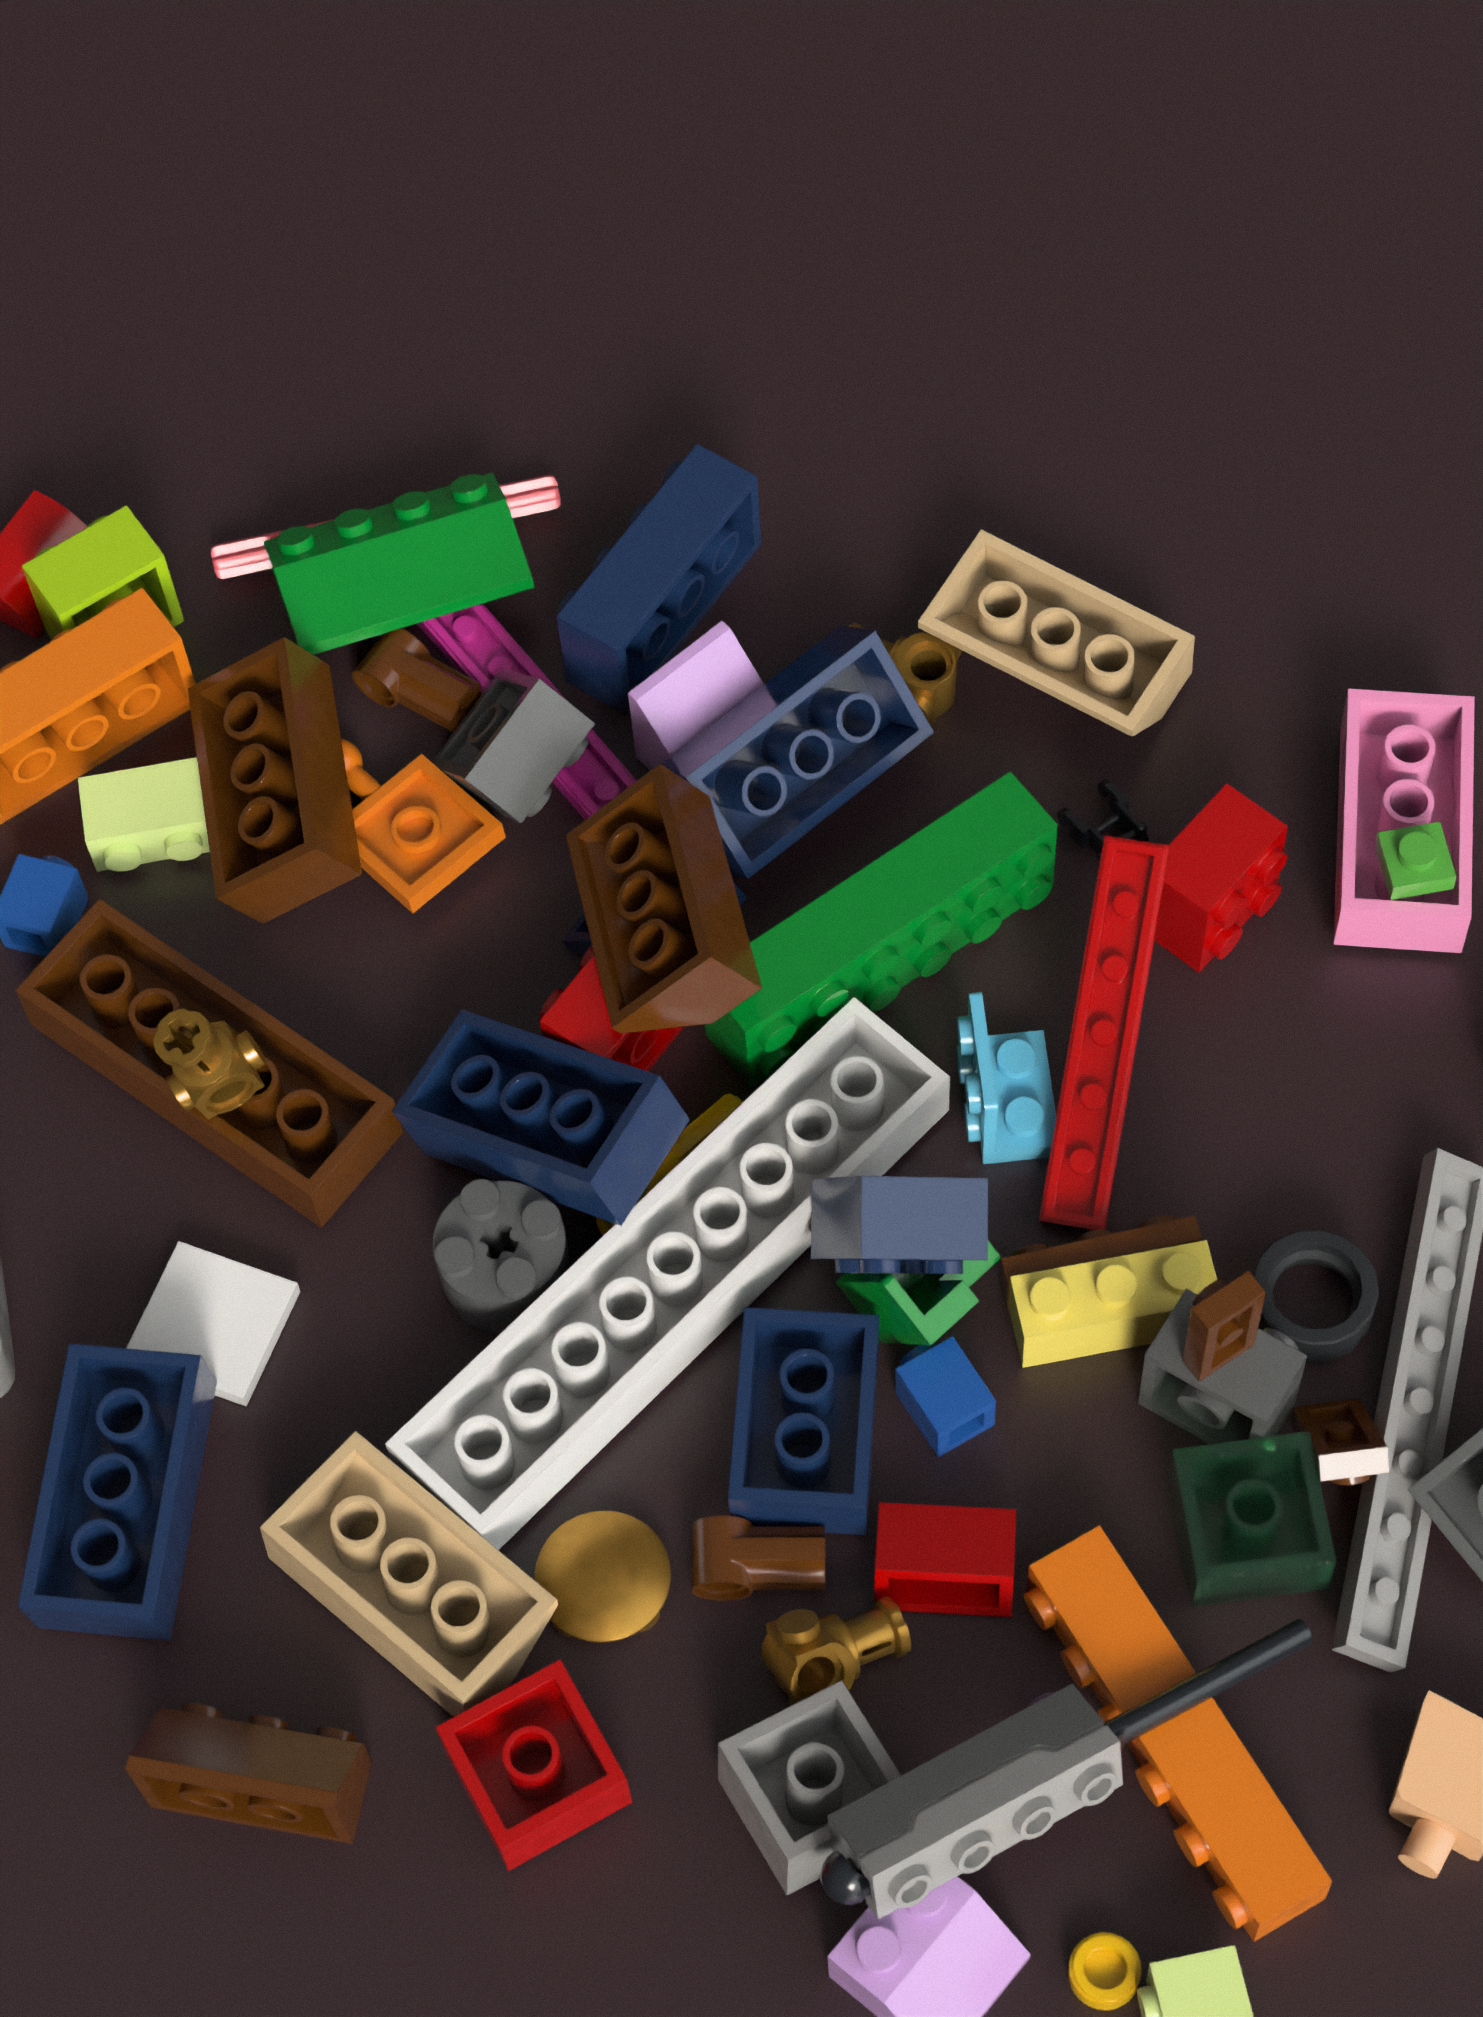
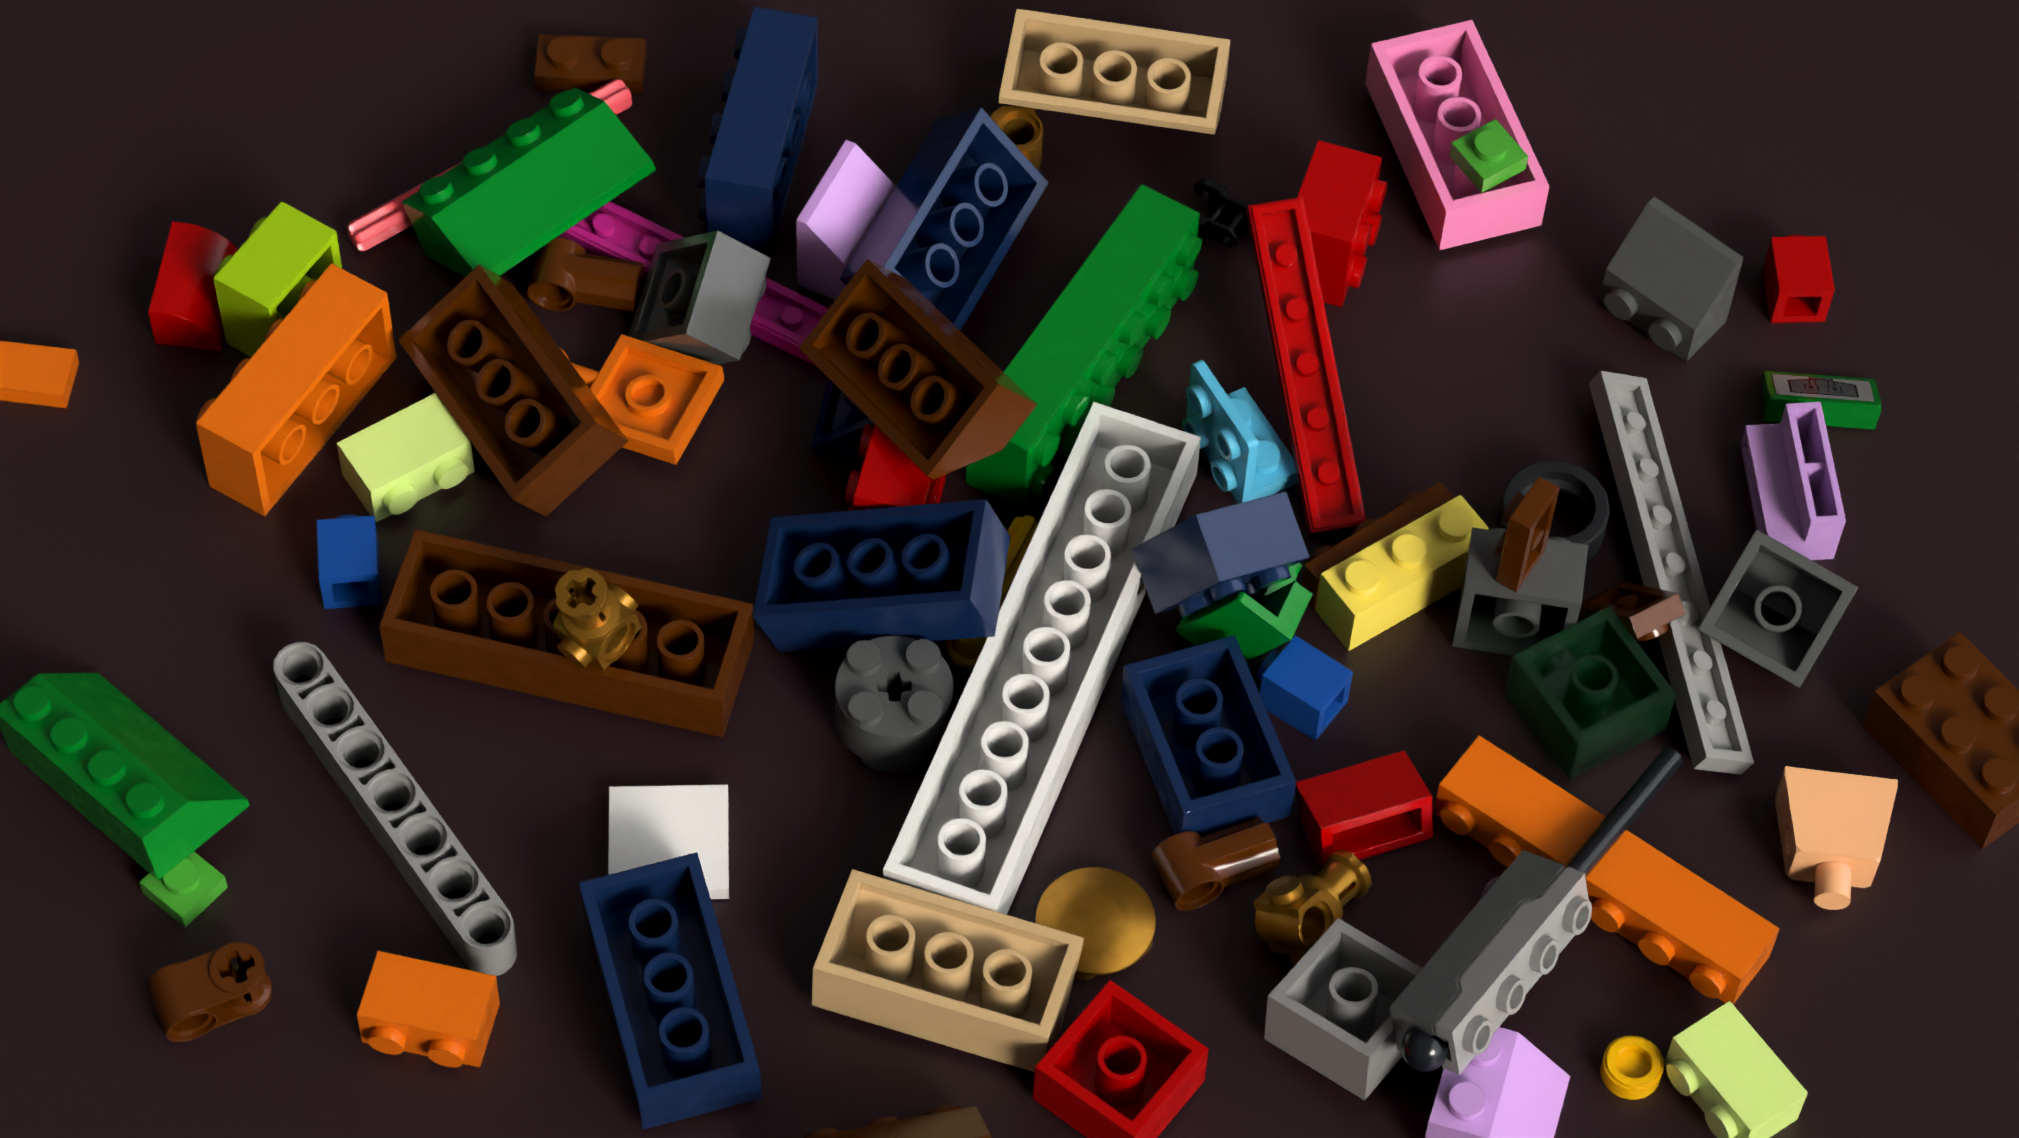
camera: 30 degrees left, 5 degrees down
(537, 448) = (589, 62): none -> reddish brown plate

